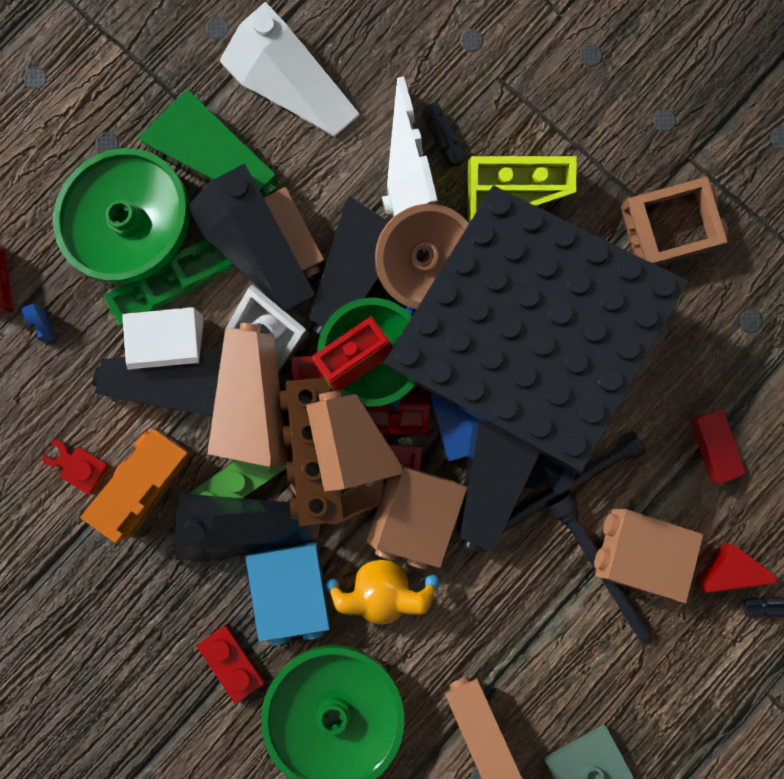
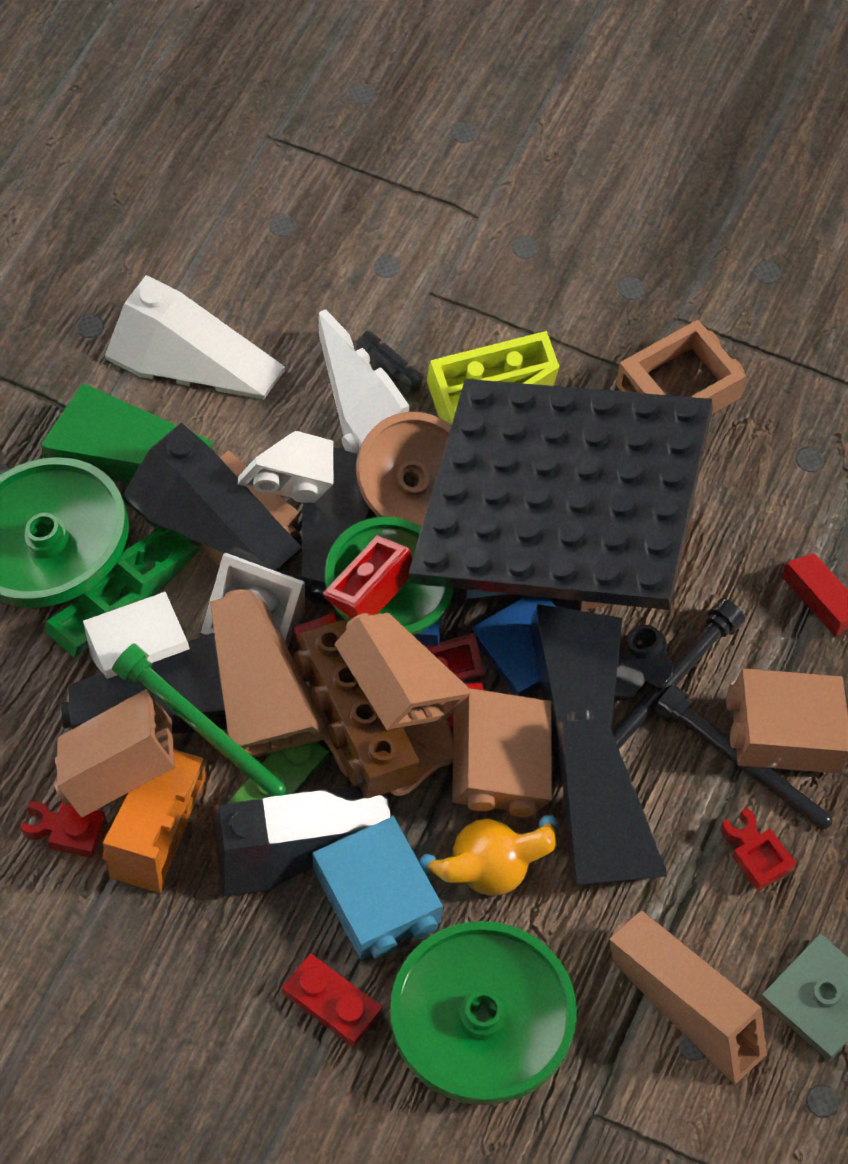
camera: 15 degrees left, 25 degrees down
(117, 433) = (114, 753): none -> nougat brick
(148, 373) = (134, 665): none -> green piece
(326, 226) = (293, 467): none -> white slope
(474, 596) = (602, 811): none -> black slope
(584, 651) = (758, 855): none -> red plate

